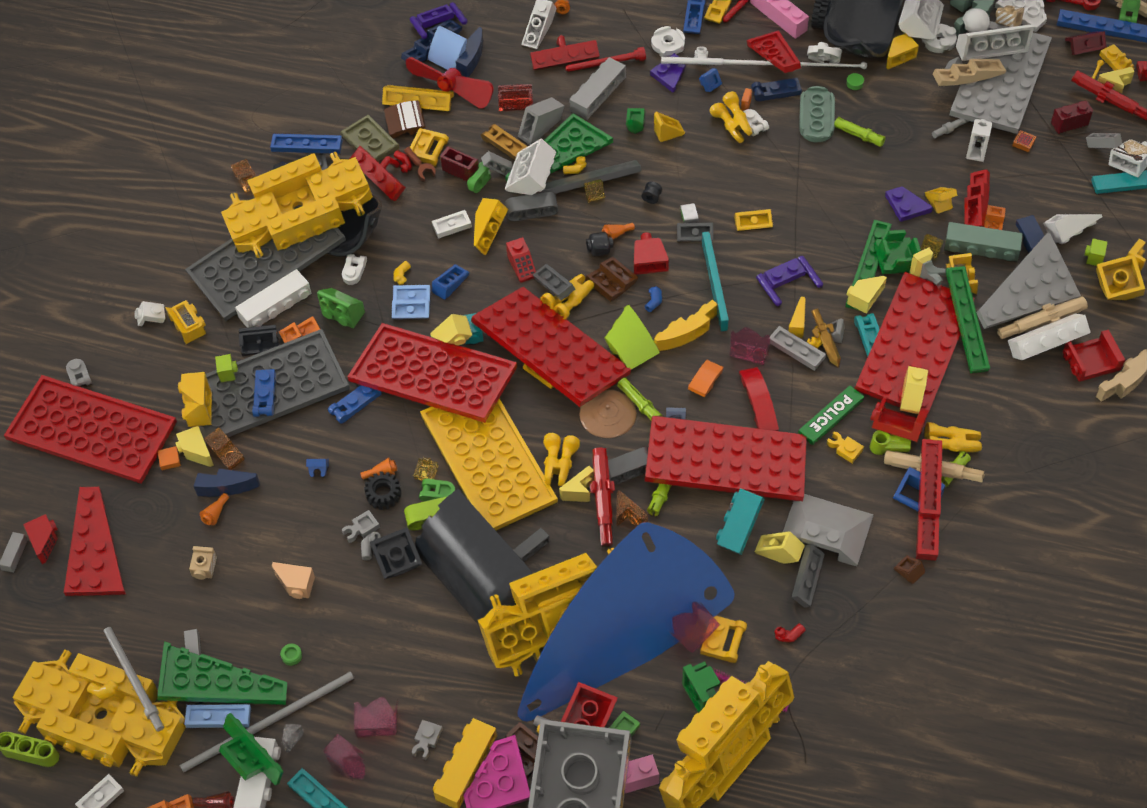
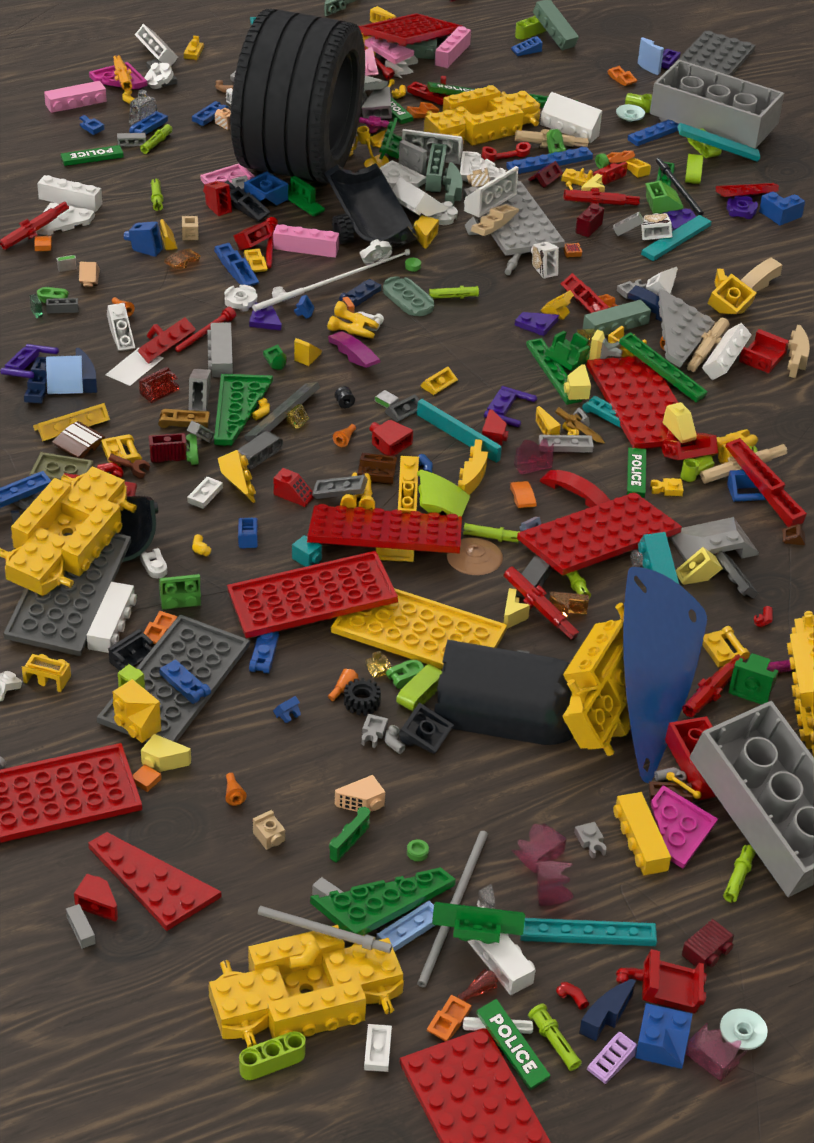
camera: 45 degrees left, 15 degrees down
(224, 448) = (200, 744): clear orange slope -> none
(225, 482) = (220, 764): dark blue slope -> none
(253, 606) = (350, 834): none -> green plate
(411, 302) = (231, 561): light blue slope -> none
(453, 330) = (300, 555): light yellow slope -> none
(473, 90) = (117, 394): red piece -> none
(515, 69) = (132, 368): none -> white sticker
(531, 168) = (235, 420): white slope -> none
(559, 466) = (476, 598): yellow piece -> none
(599, 244) = (344, 448): black head -> none
(604, 320) = (408, 484): none -> yellow slope
(661, 671) = (710, 688): none -> red piece
(694, 627) = (703, 637): clear pink piece -> none
(707, 147) = (355, 349): none -> magenta slope
(743, 299) = (495, 428): none -> red slope
(775, 50) = (336, 266): red wing -> none
(976, 20) = (462, 187): white hair -> none
(1040, 215) = (624, 288): none -> light grey plate
(1096, 252) = (696, 291): lime plate -> none

